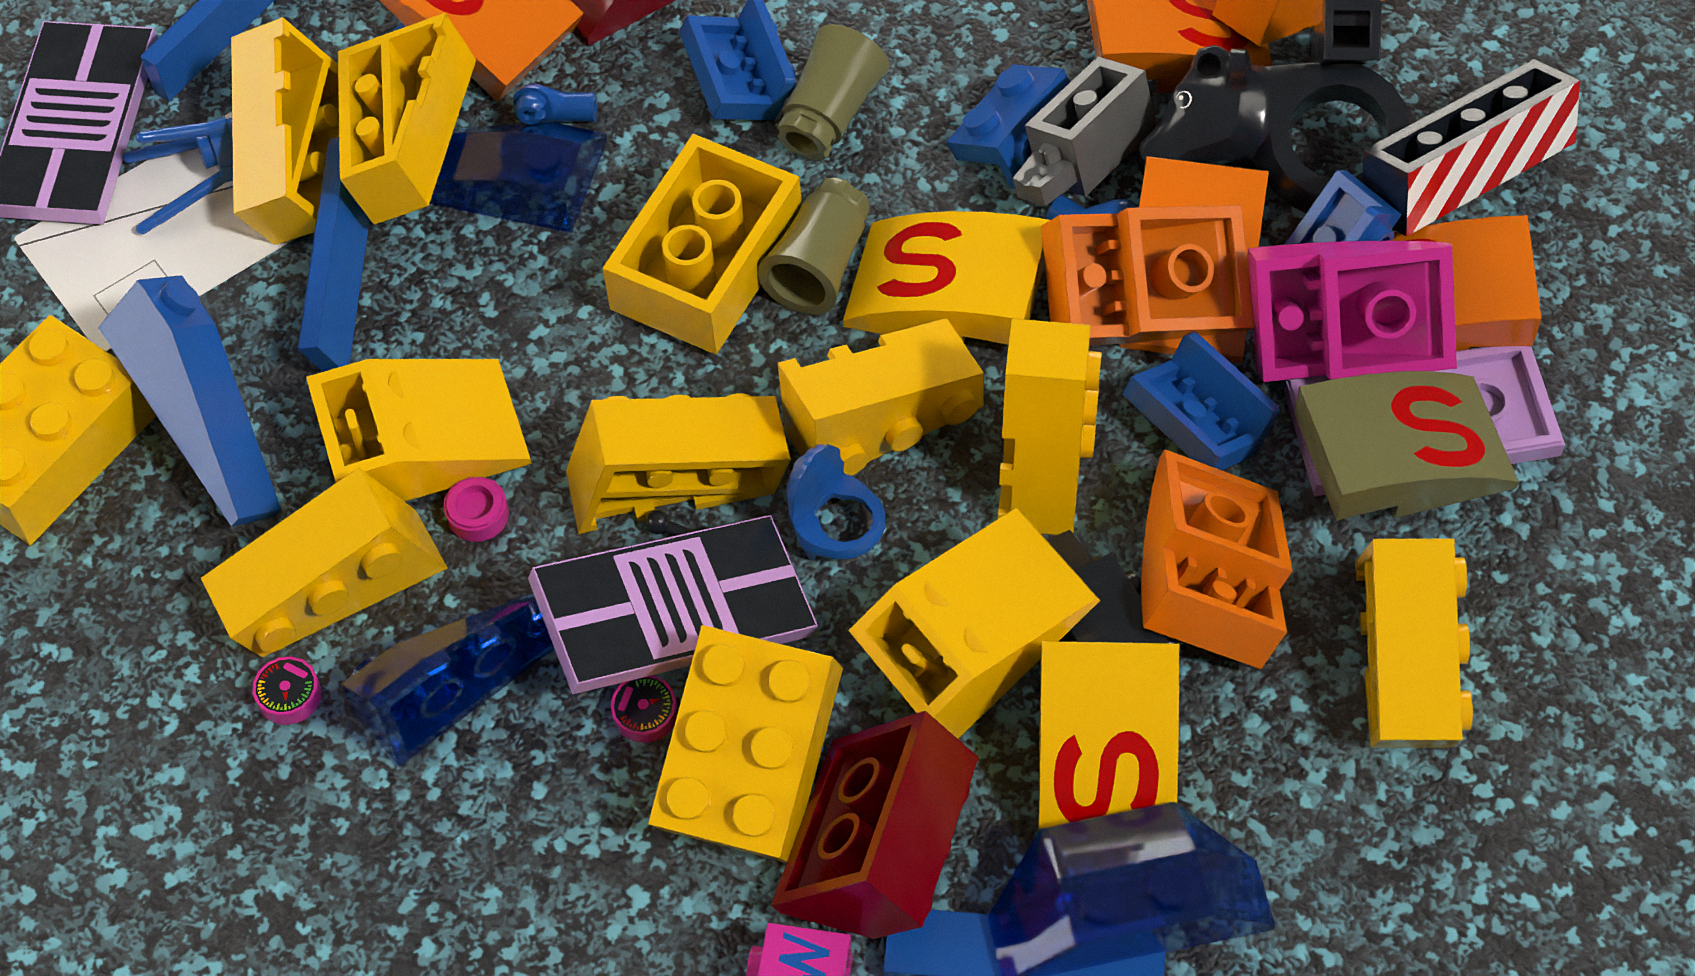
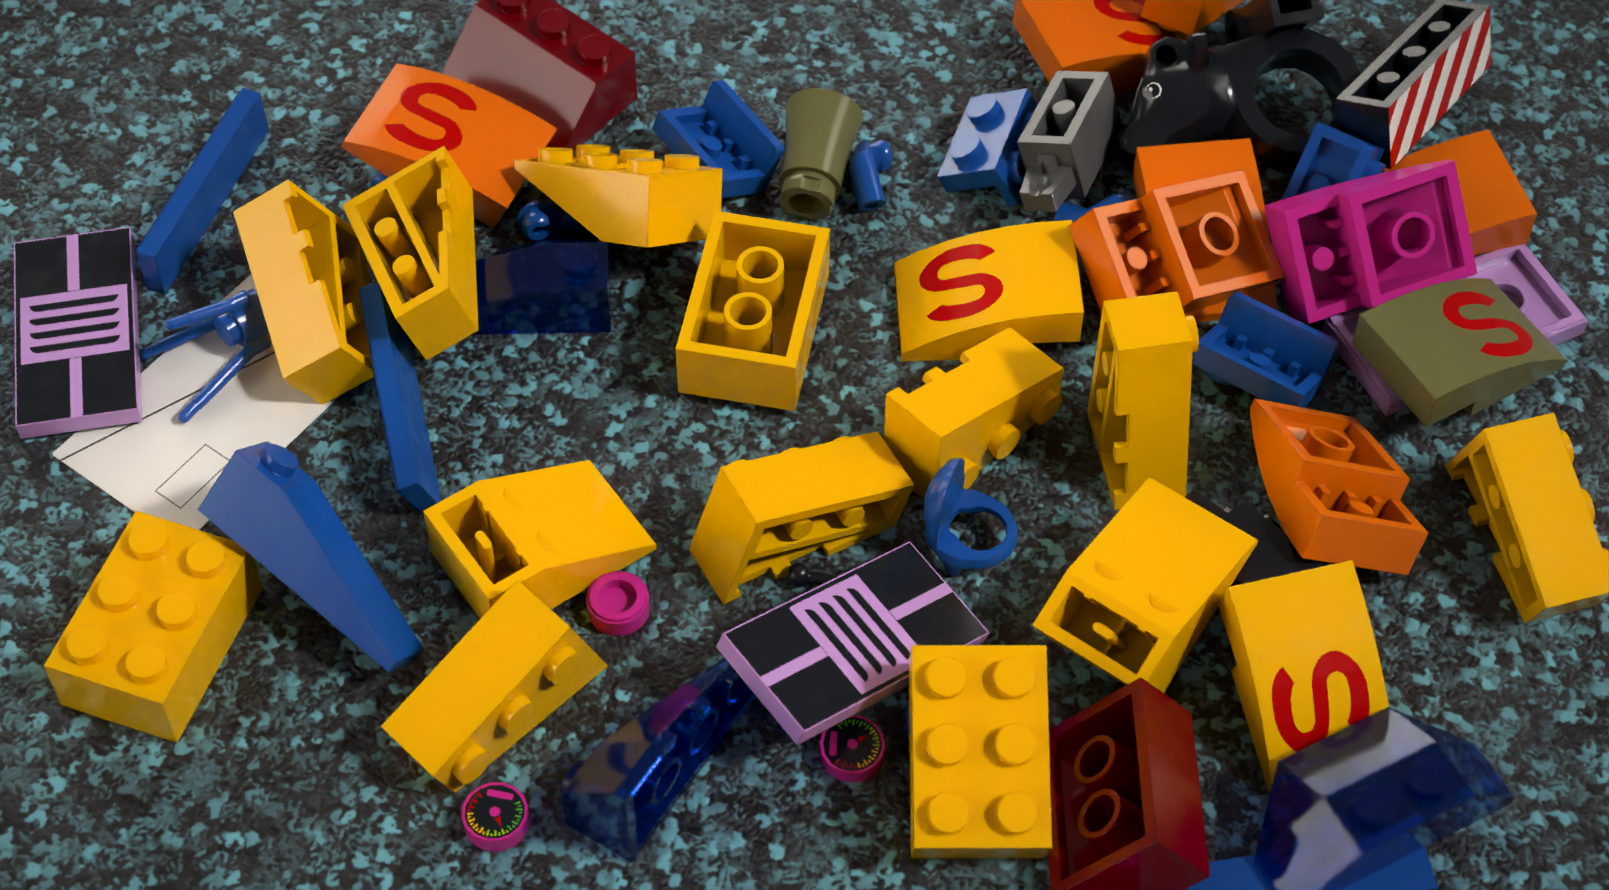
camera: 20 degrees left, 5 degrees down
(622, 97) = (629, 195): none -> yellow slope
(815, 250) = (857, 297): olive plant -> none
(874, 120) = (864, 175): none -> blue arm

